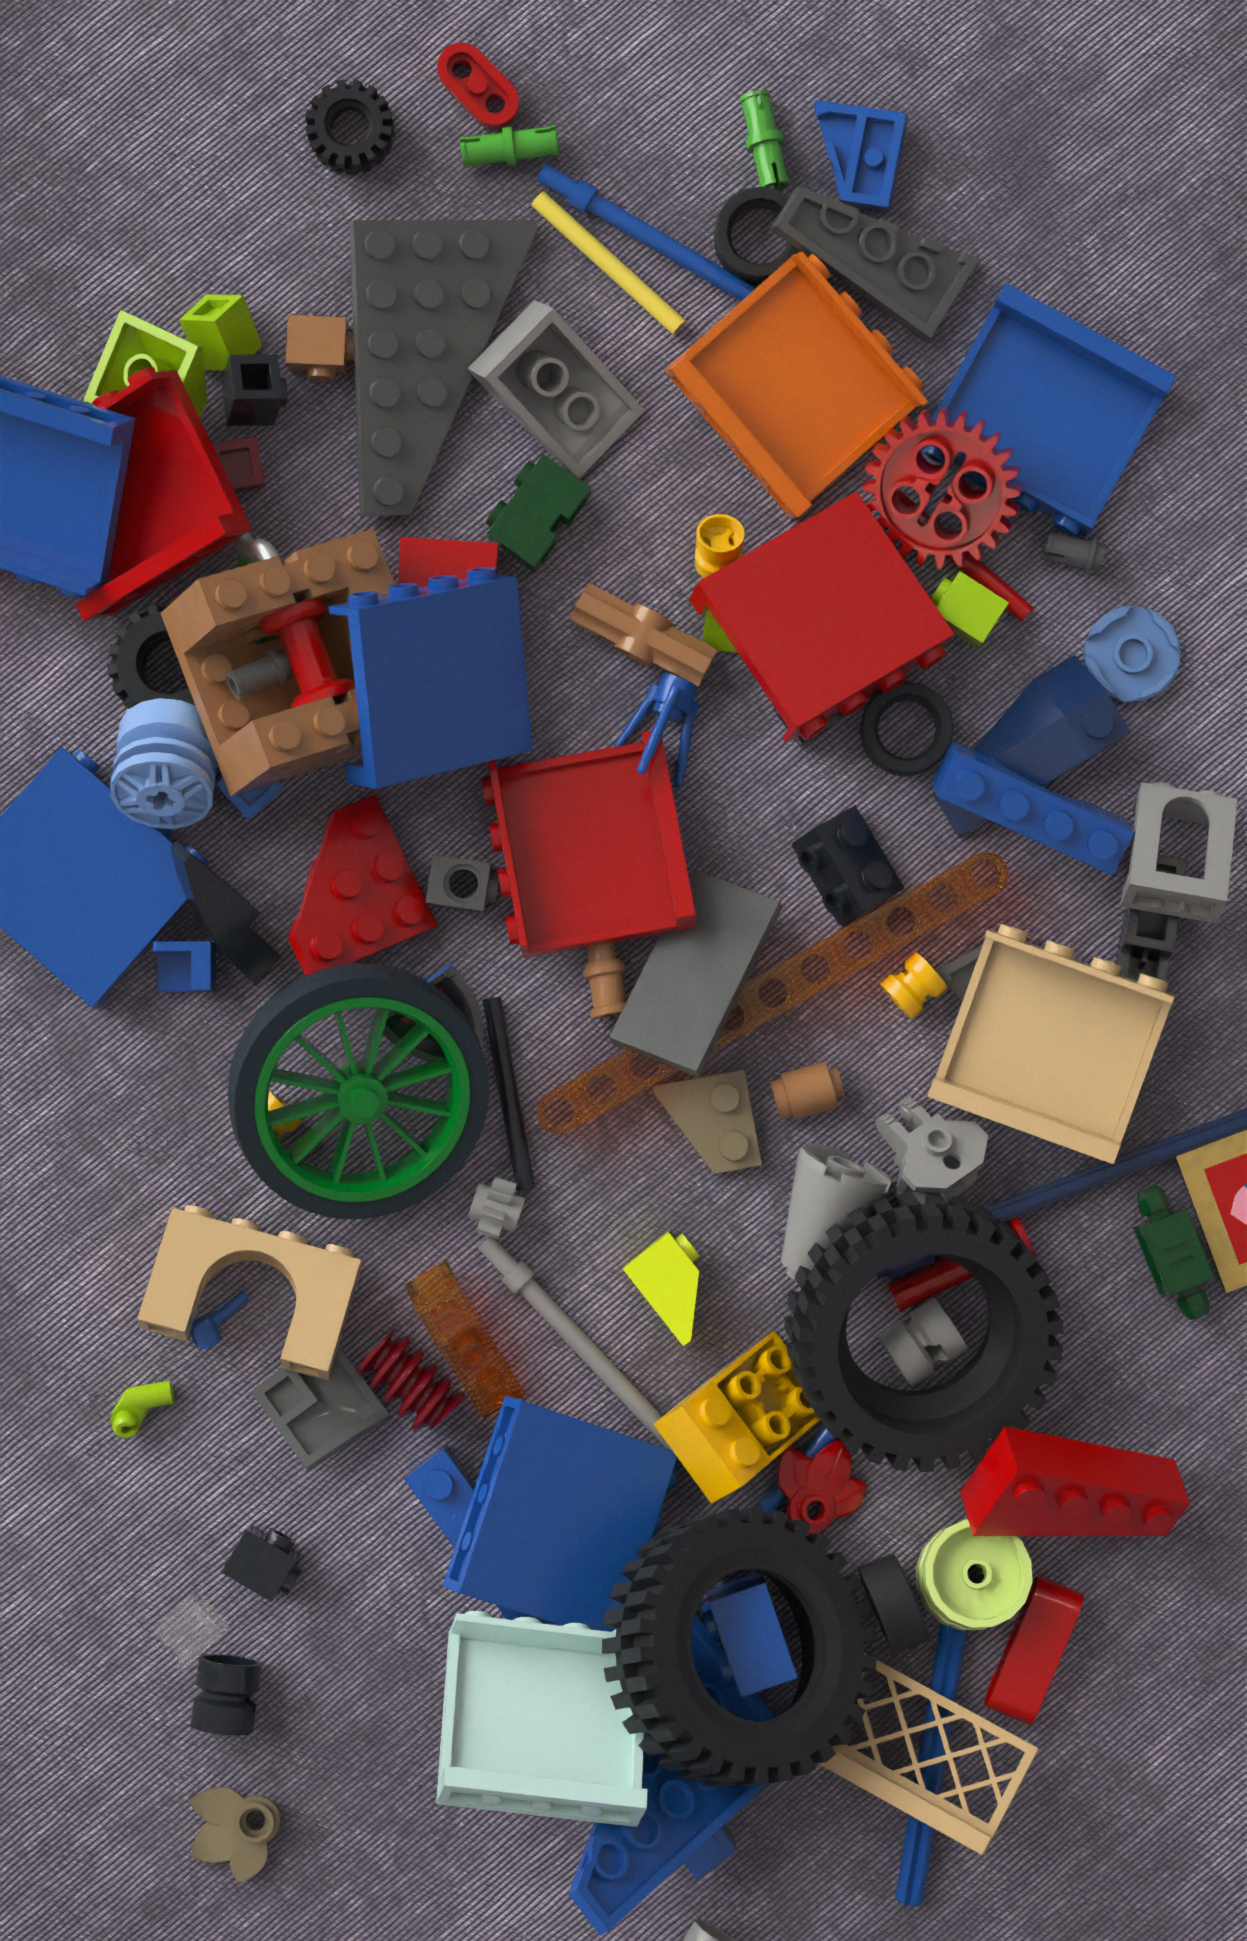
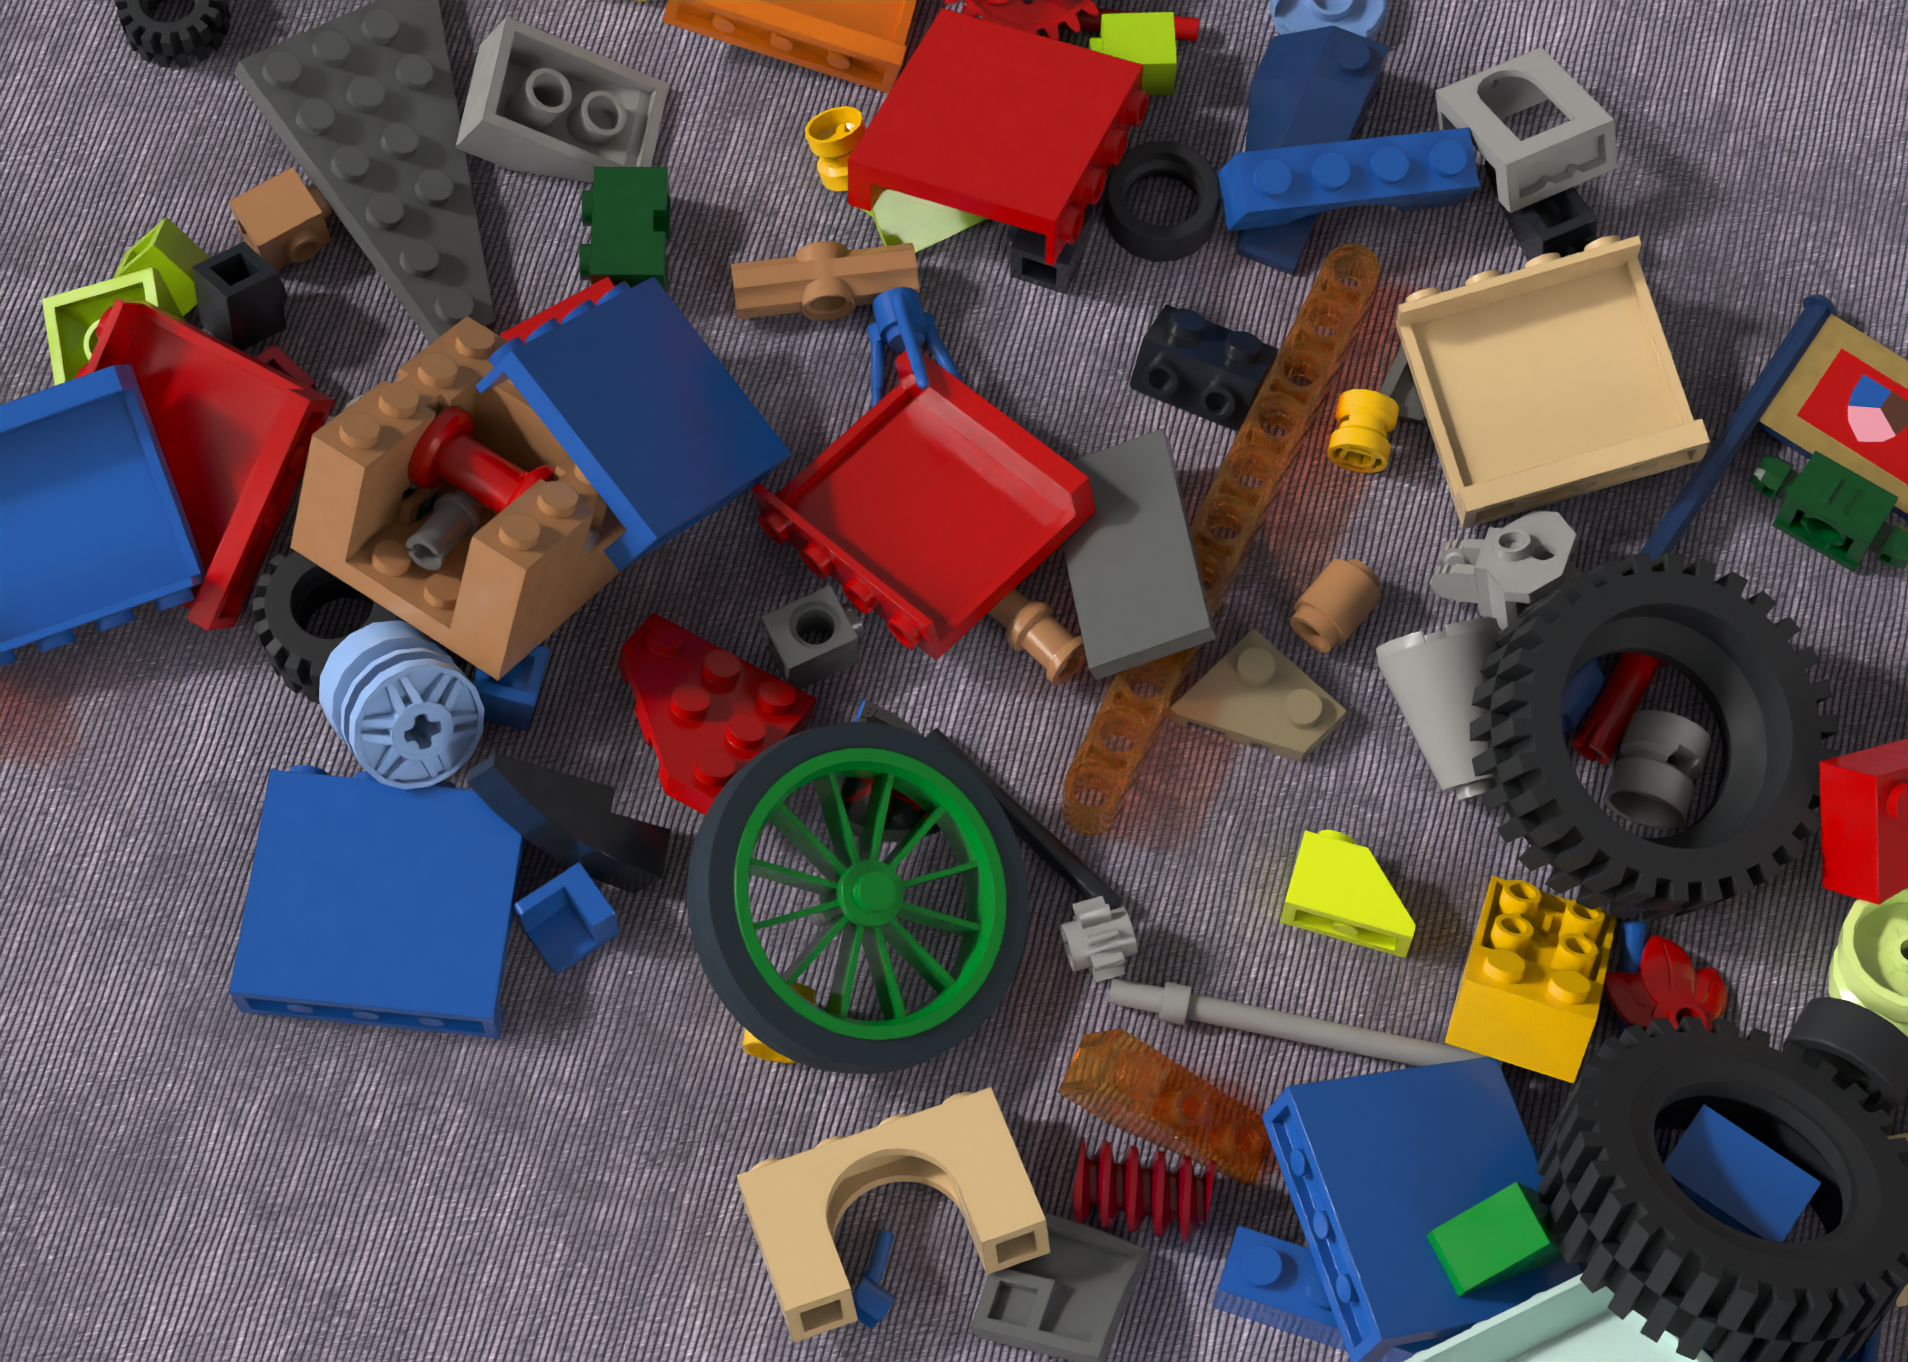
camera: 40 degrees left, 20 degrees down
(578, 1576) = (1496, 1240): none -> green slope

